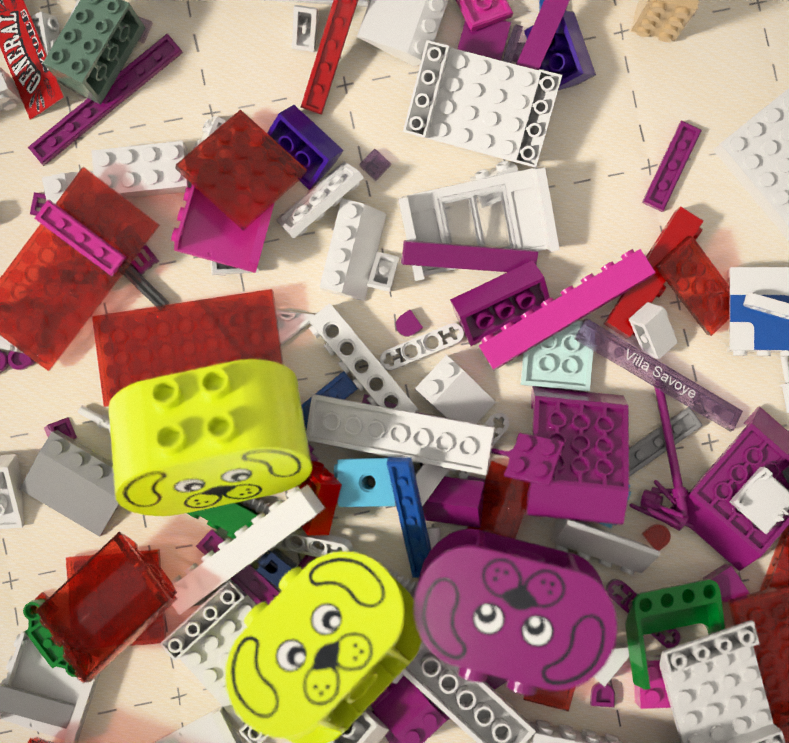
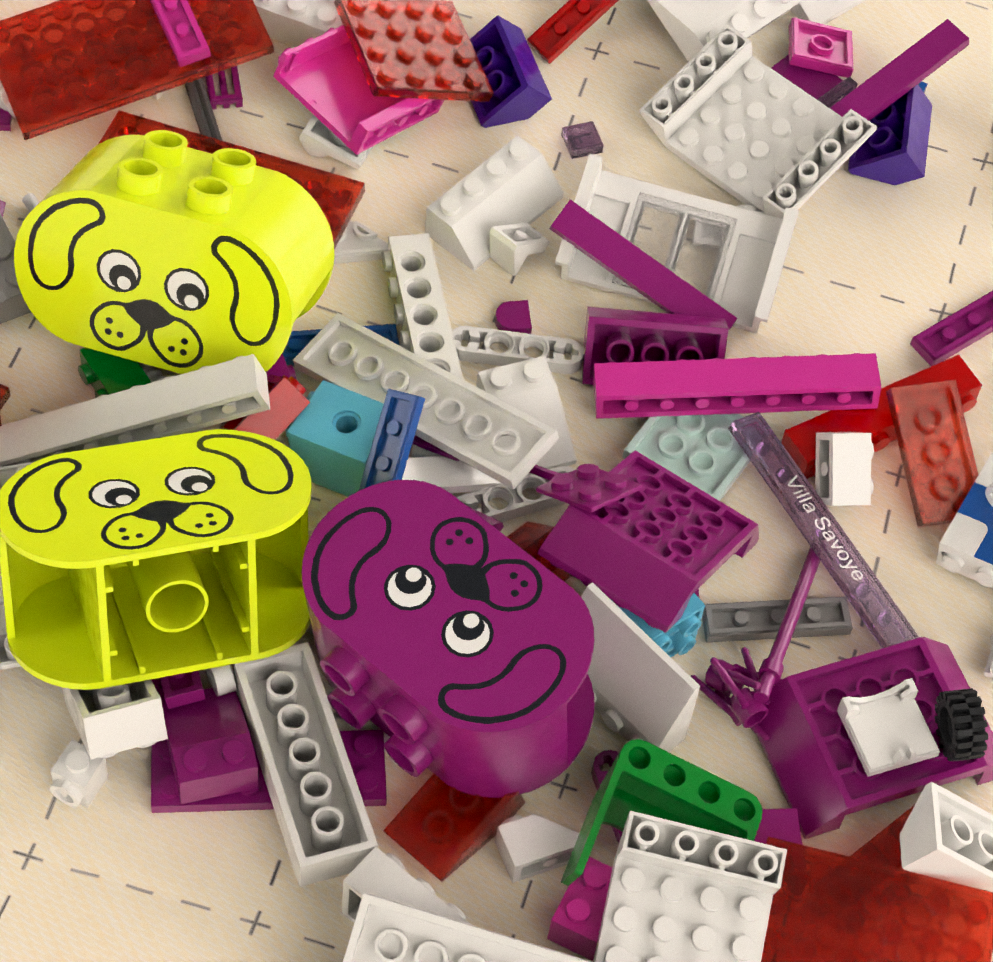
camera: 20 degrees right, 30 degrees down
(319, 199) = (500, 127): white plate -> none
(602, 695) = (504, 898): magenta tile -> none
(657, 536) = (708, 734): clear red tile -> none

